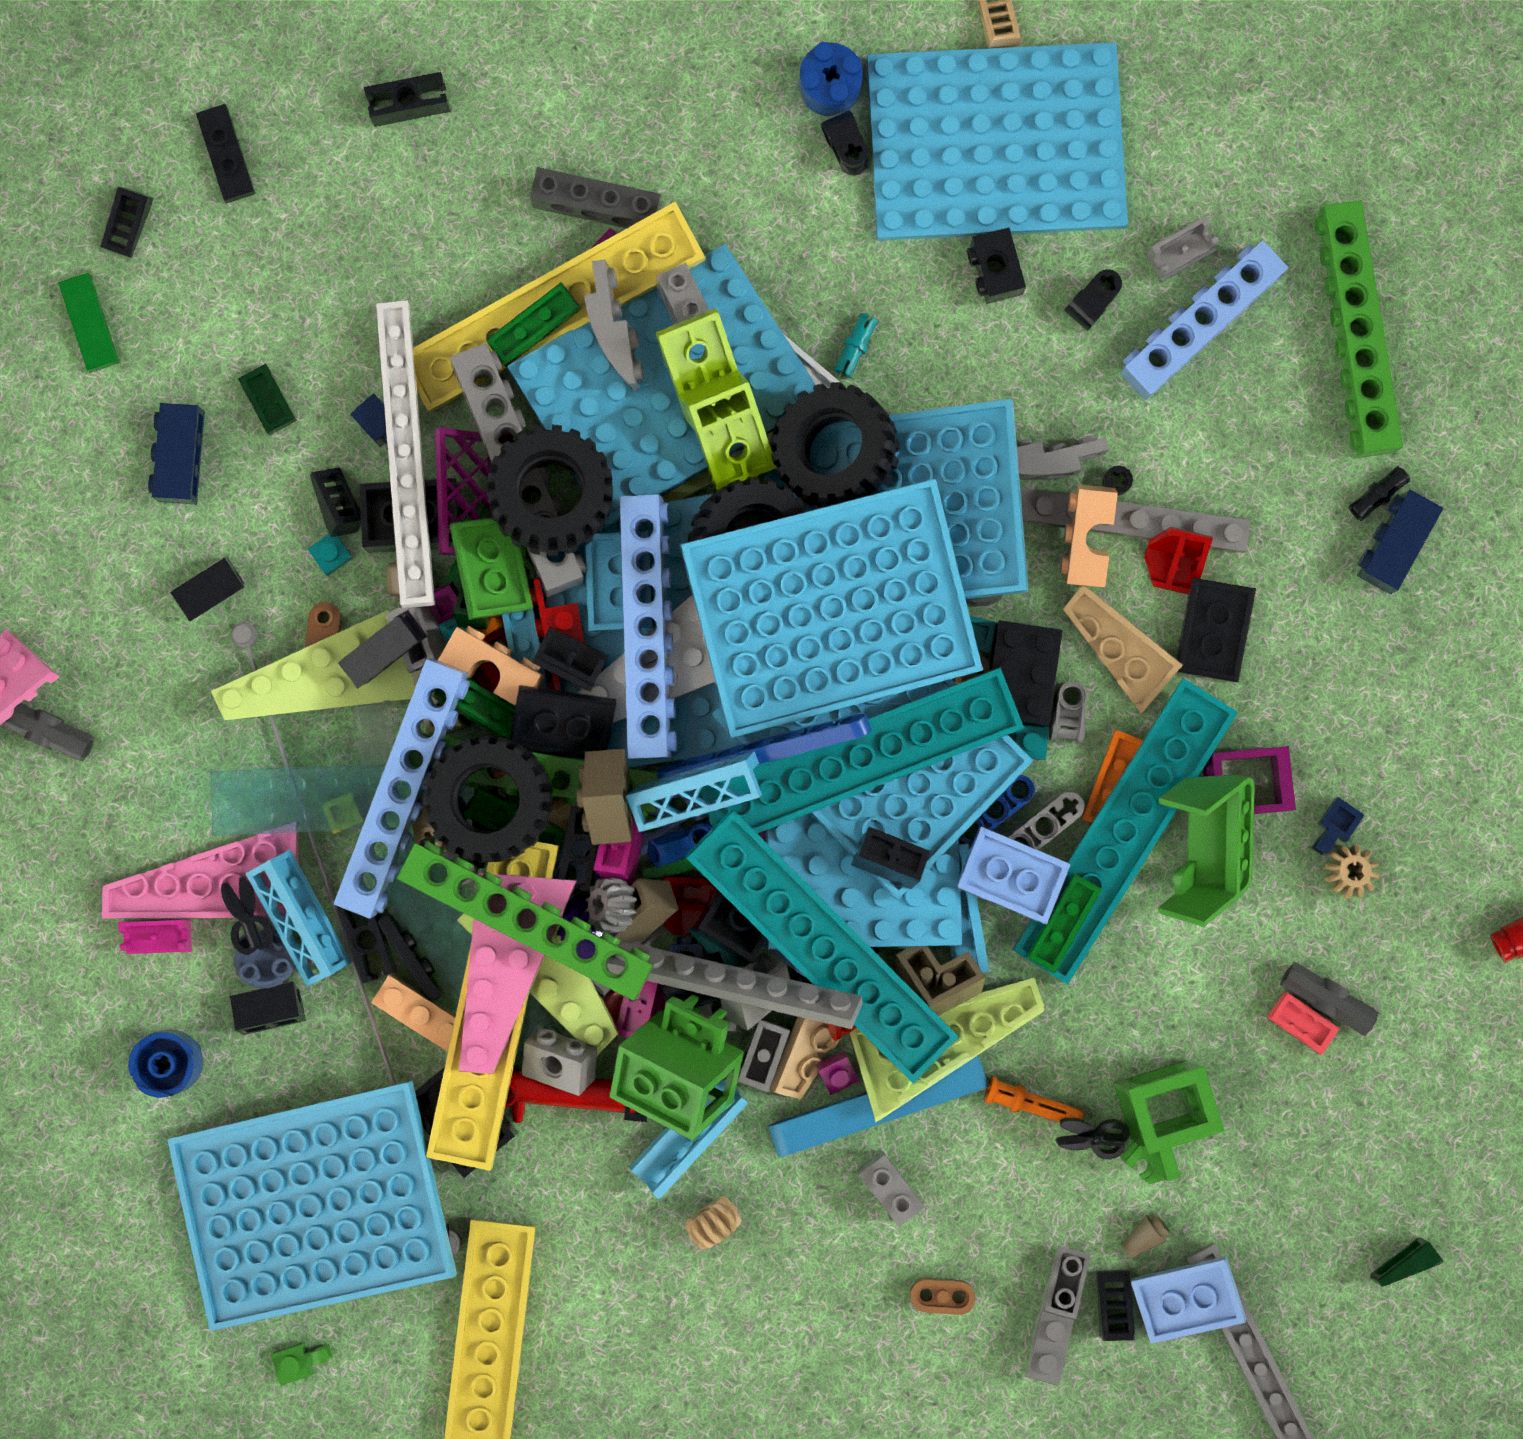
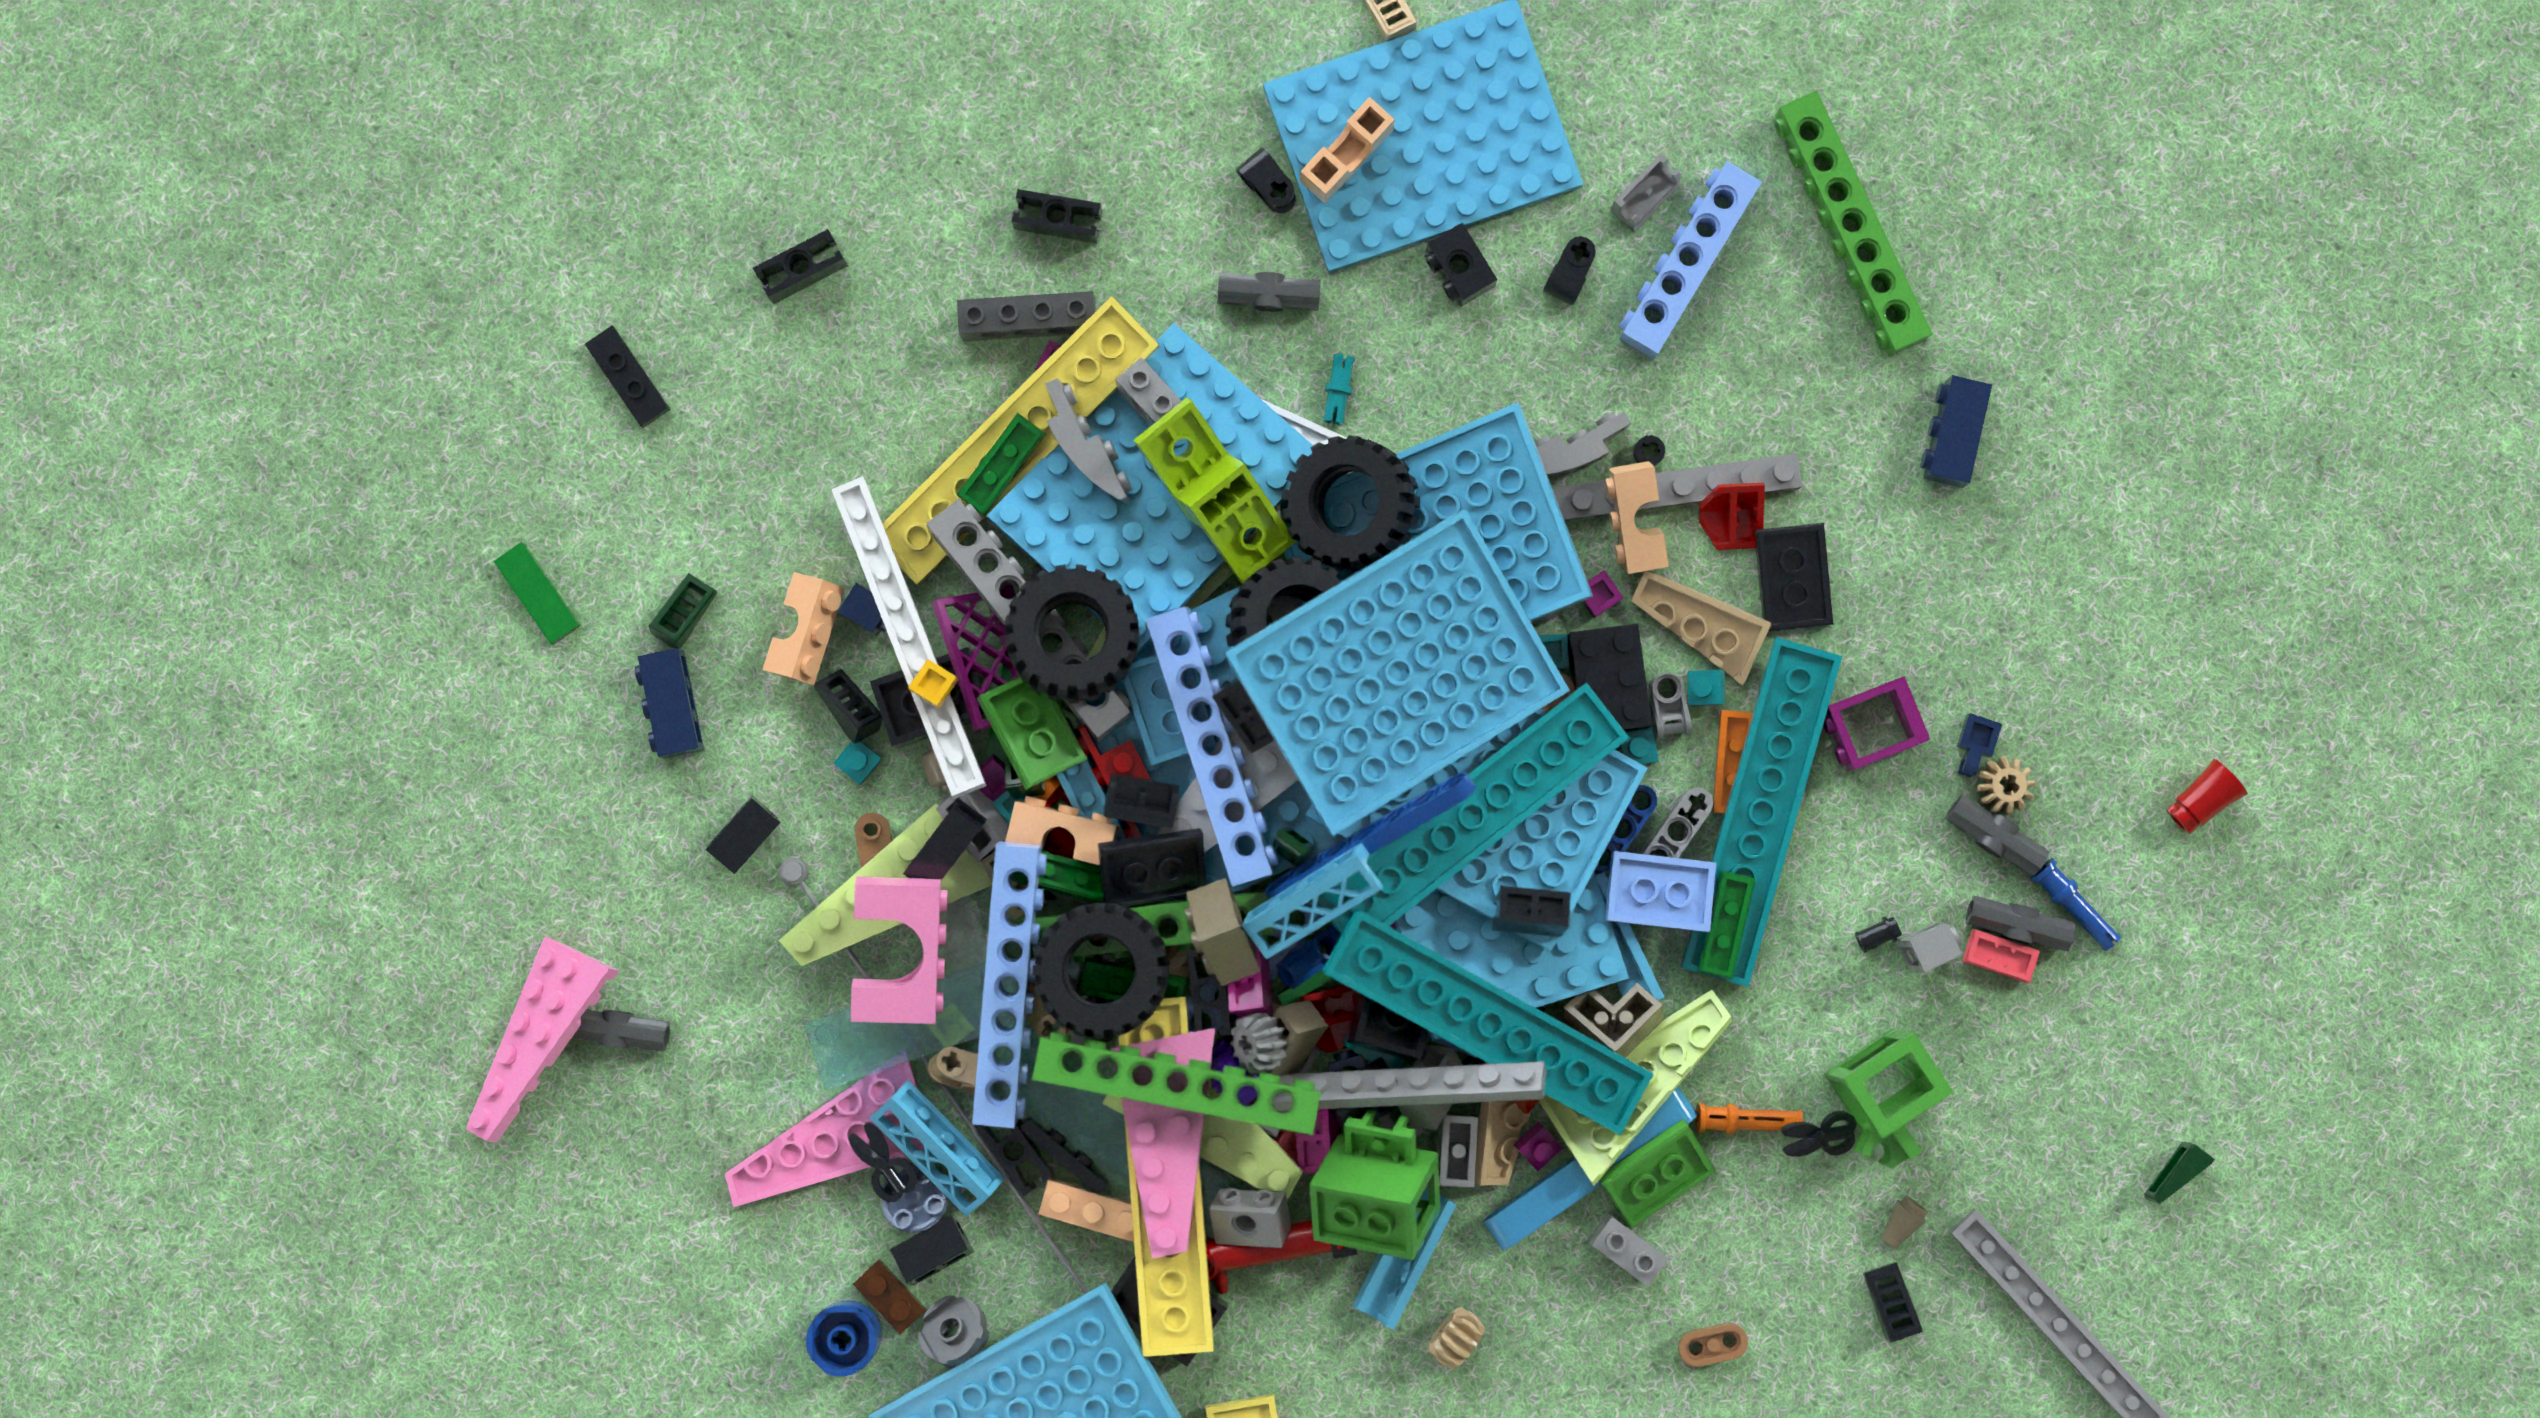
camera: 10 degrees left, 0 degrees up
(137, 225) = (557, 478): black slope -> none
(156, 936) = (794, 1209): dark pink hinge -> none
(211, 391) = (692, 618): none -> dark green slope
(218, 1038) = (889, 1296): none -> reddish brown plate
(267, 399) = (746, 620): dark green plate -> none
(272, 1099) = (968, 1339): none -> plate
(308, 441) = (803, 651): none -> light nougat arch
(341, 853) = (963, 1070): none -> tan piece
(342, 695) = (914, 995): none -> bright pink arch
(413, 500) = (933, 683): none -> yellow plate
(644, 107) = (1050, 203): none -> black piece
(681, 607) = (1242, 715): none -> black hinge
(693, 738) = (1292, 846): none -> dark green slope
(818, 241) = (1269, 291): none -> dark grey piece
(829, 61) = (1218, 108): blue brick -> none
(936, 1128) = (1656, 1174): none -> bright green tile
(939, 126) = (1338, 162): none -> light nougat arch
(1039, 595) = (1604, 594): none -> magenta plate
(1057, 1315) = (1836, 1329): light grey slope -> none
(1107, 706) = (1706, 687): none -> teal plate
(1188, 1300) = (1966, 1275): light blue plate -> none
(1198, 971) = (1878, 934): none -> black pin
(1218, 846) = (1861, 800): bright green windscreen -> none
(1241, 995) = (1930, 947): none -> light grey brick
(1331, 913) = (1997, 835): none -> dark grey piece
(1377, 983) = (2065, 892): none -> blue pin
(1379, 493) = (1921, 387): black pin -> none

